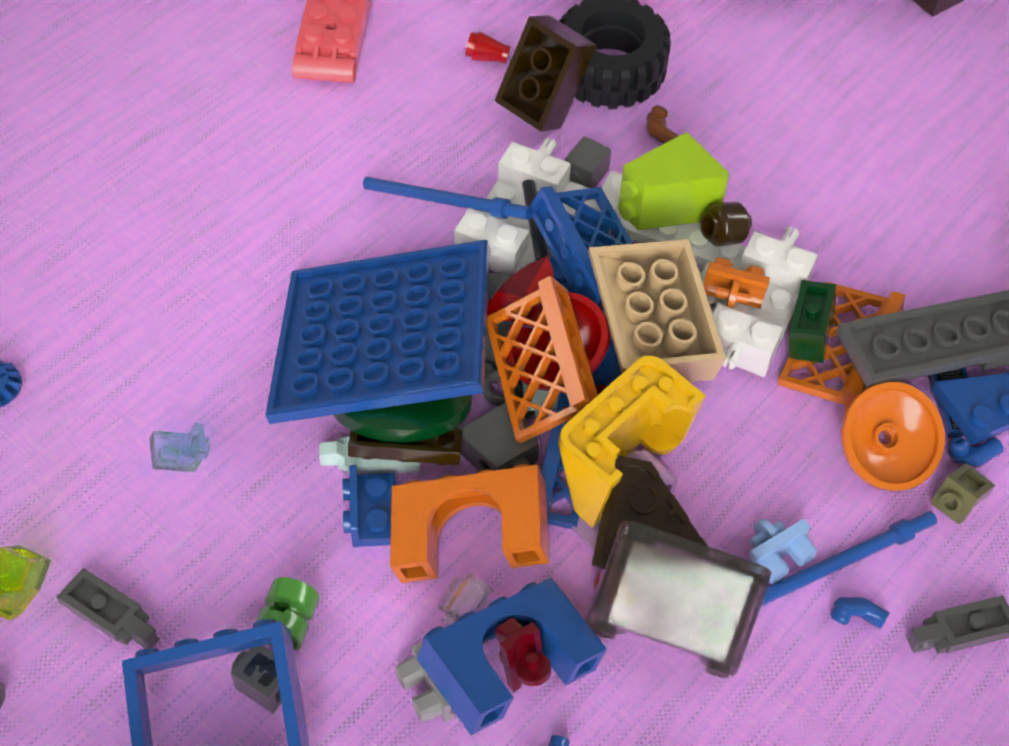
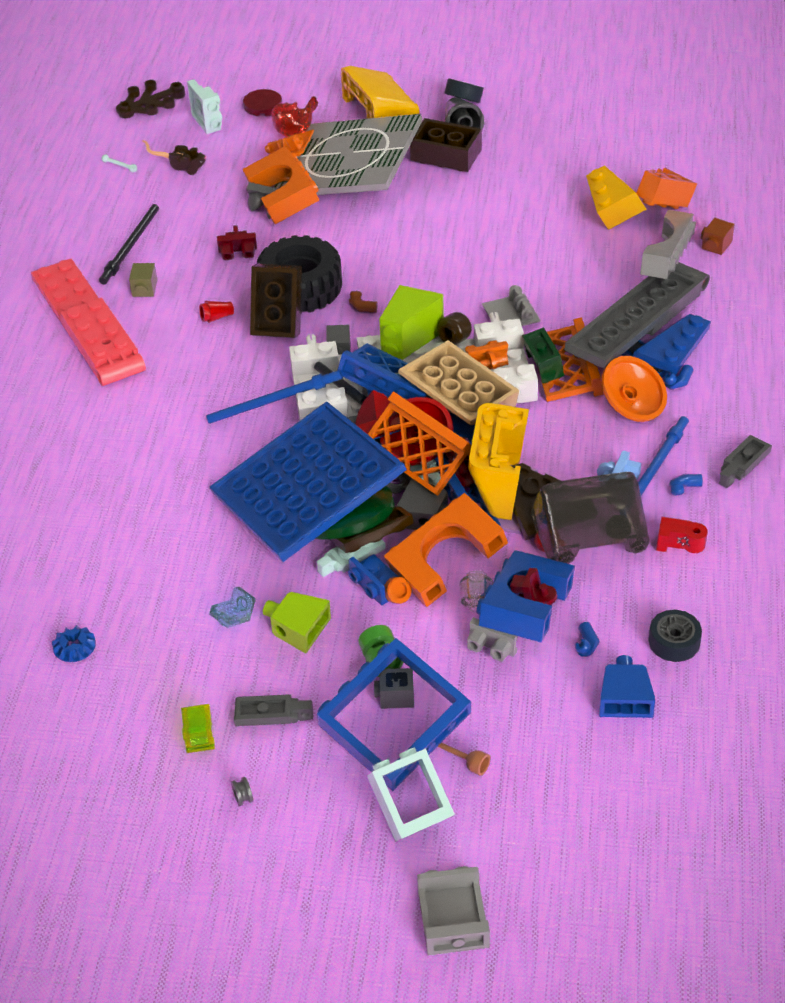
camera: 30 degrees left, 10 degrees down
(237, 508) = (298, 619): none -> lime torso
(375, 540) = (397, 590): none -> orange tile
(789, 687) = (681, 535): none -> red leg
(833, 234) = (513, 307): none -> light grey hinge
(961, 493) = (689, 401): olive bracket -> none

